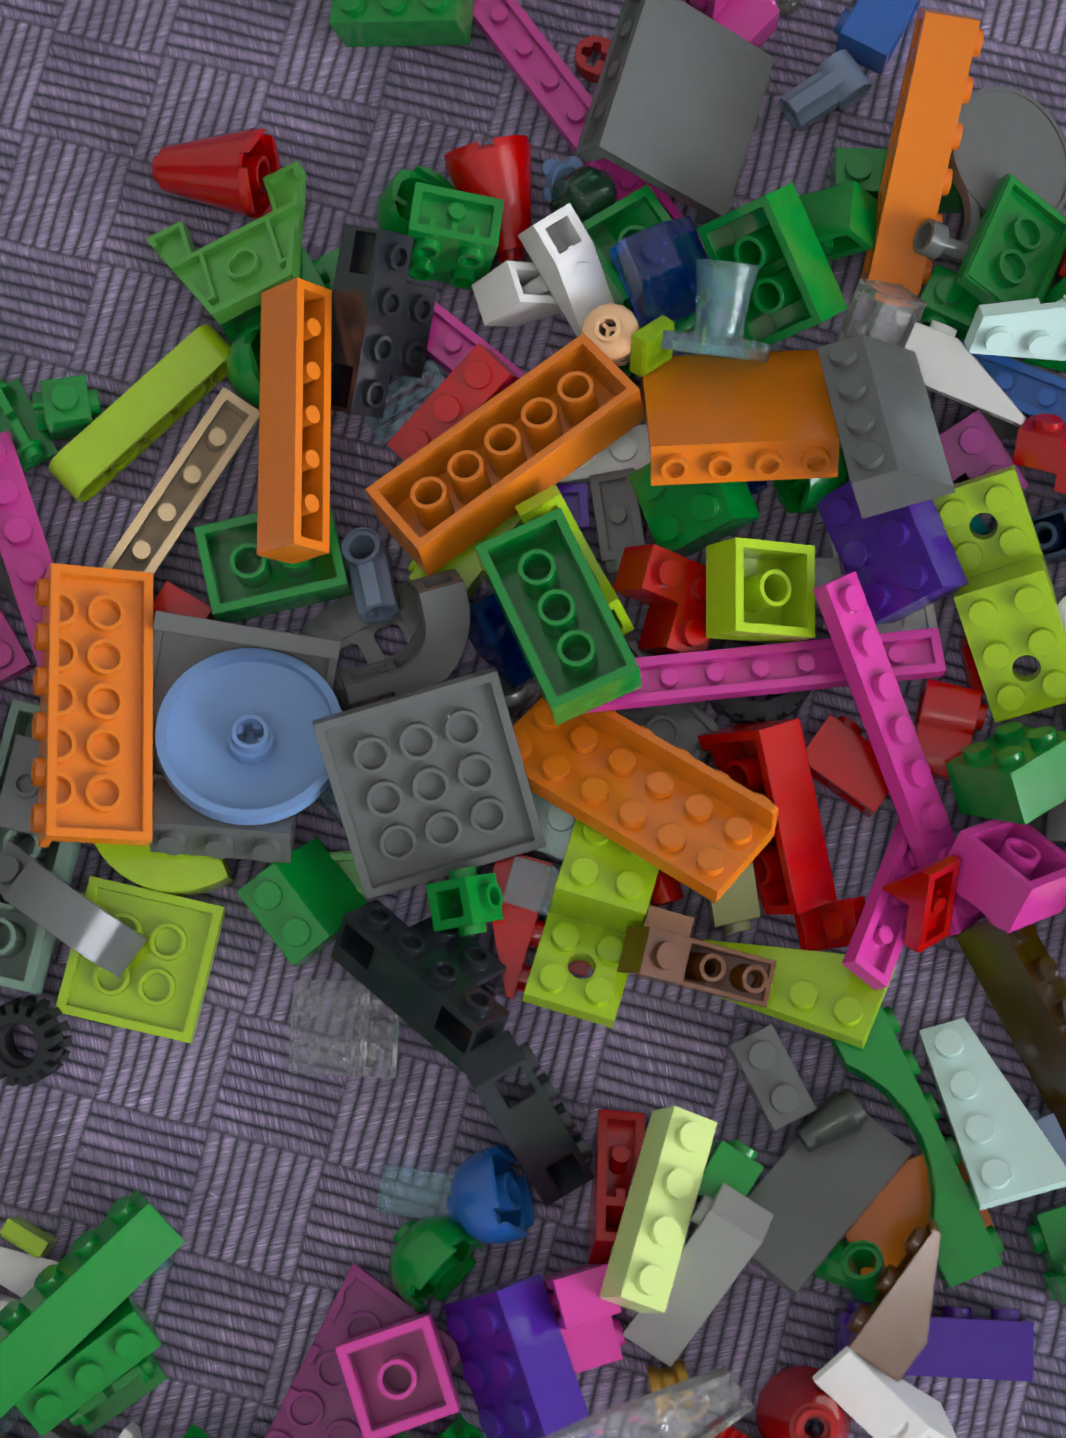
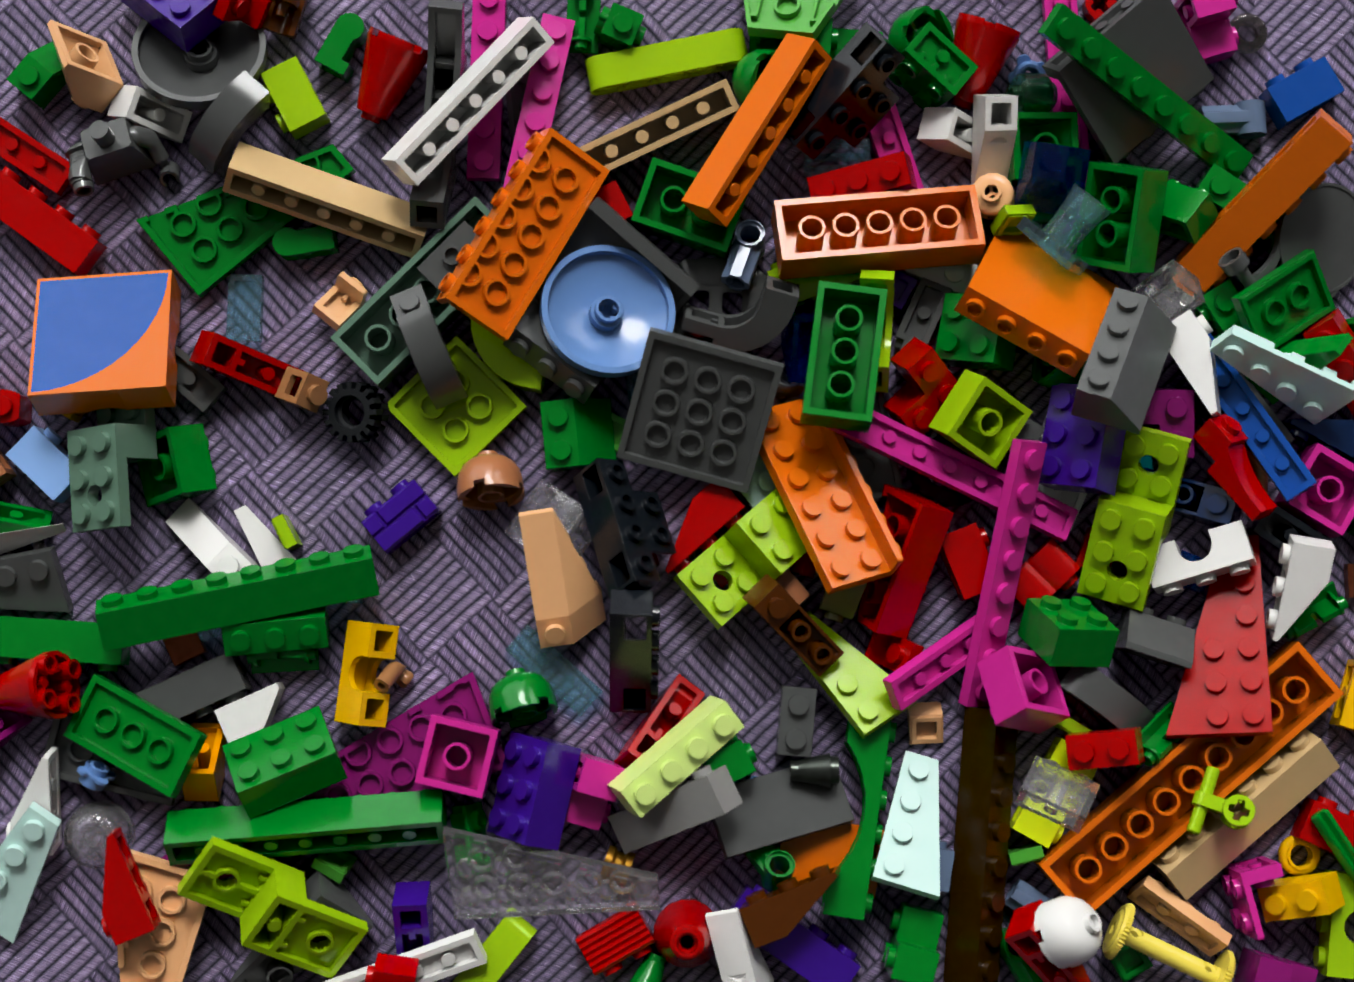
camera: 30 degrees right, 5 degrees up
(153, 1130) = (400, 515): none -> dark purple brick
(233, 1022) = (489, 480): none -> nougat cylinder
(233, 1378) = (363, 652): none -> yellow arch
(258, 1326) = (393, 673): none -> medium nougat arm
(398, 1095) = (562, 589): none -> light nougat wedge
(465, 901) = (675, 496): green brick -> none
(490, 1198) = (579, 685): blue cylinder -> none
(531, 885) = (722, 511): clear light blue tile -> none
(703, 112) = (1143, 90): none -> green plate
(921, 984) = (925, 723): none -> light nougat slope
(930, 898) = (962, 675): red slope -> none

